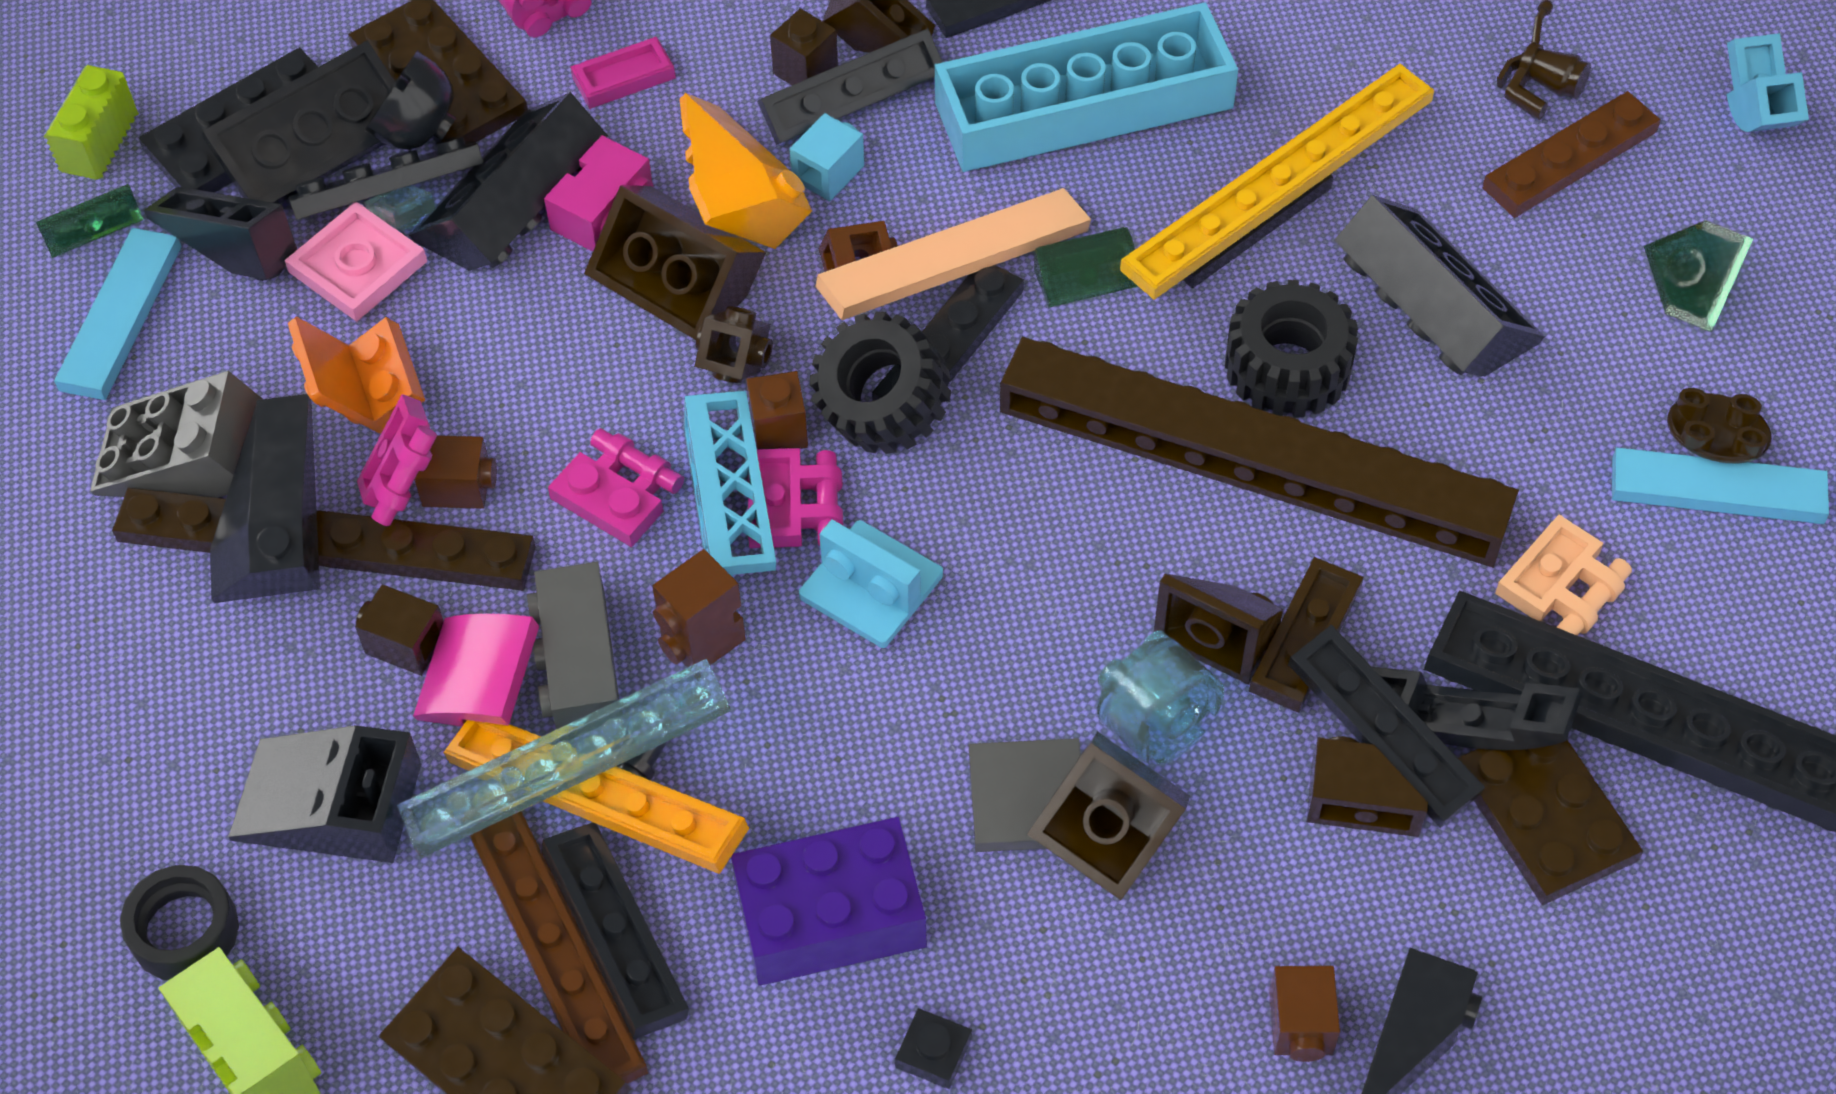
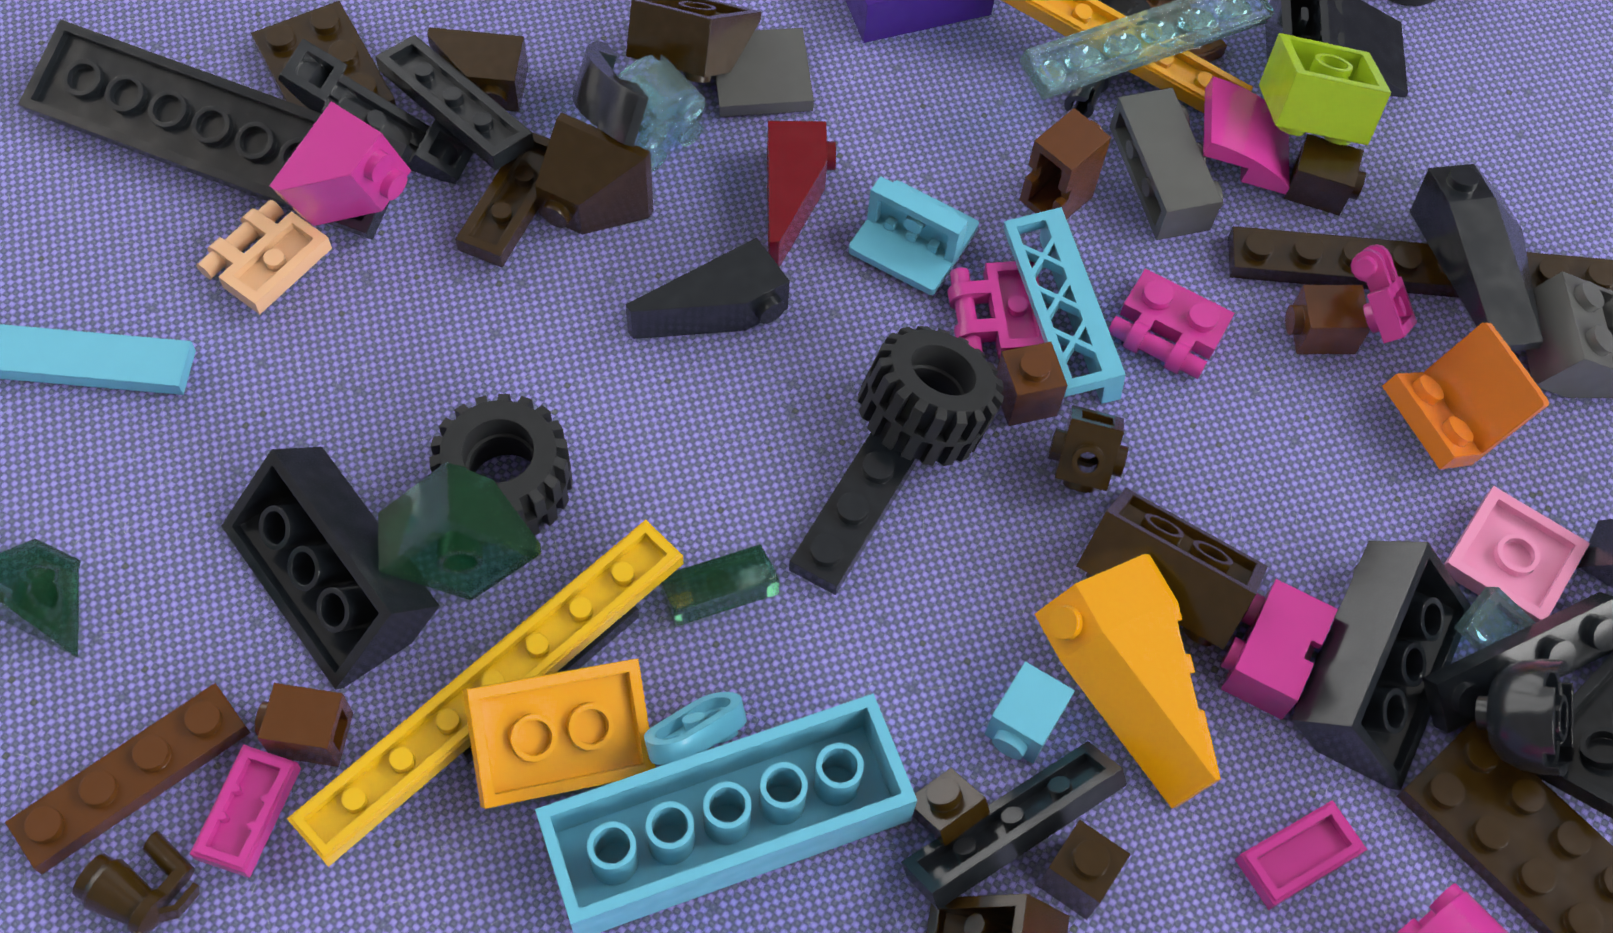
camera: 170 degrees right, 5 degrees up
(383, 671) = (1323, 90): none -> lime brick
(847, 242) = (973, 572): reddish brown brick -> none
(904, 101) = (949, 806): none -> dark brown plate
(951, 253) = (865, 569): light nougat tile -> none
(995, 639) = (795, 178): none -> dark red slope
(1085, 512) = (714, 298): none -> black slope
(1108, 148) = (696, 727): none -> medium azure plate
(1196, 614) = (606, 100): none -> black slope
(1223, 139) = (557, 732): none -> light orange plate
(1258, 451) = (551, 367): dark brown brick -> none
(1332, 250) = (454, 534): none -> clear green slope
(1436, 169) = (304, 724): none -> reddish brown brick
(1470, 121) = (245, 811): none -> dark pink plate
(1484, 584) = (341, 170): none -> dark pink slope
(1719, 426) = (63, 411): dark brown dish -> none

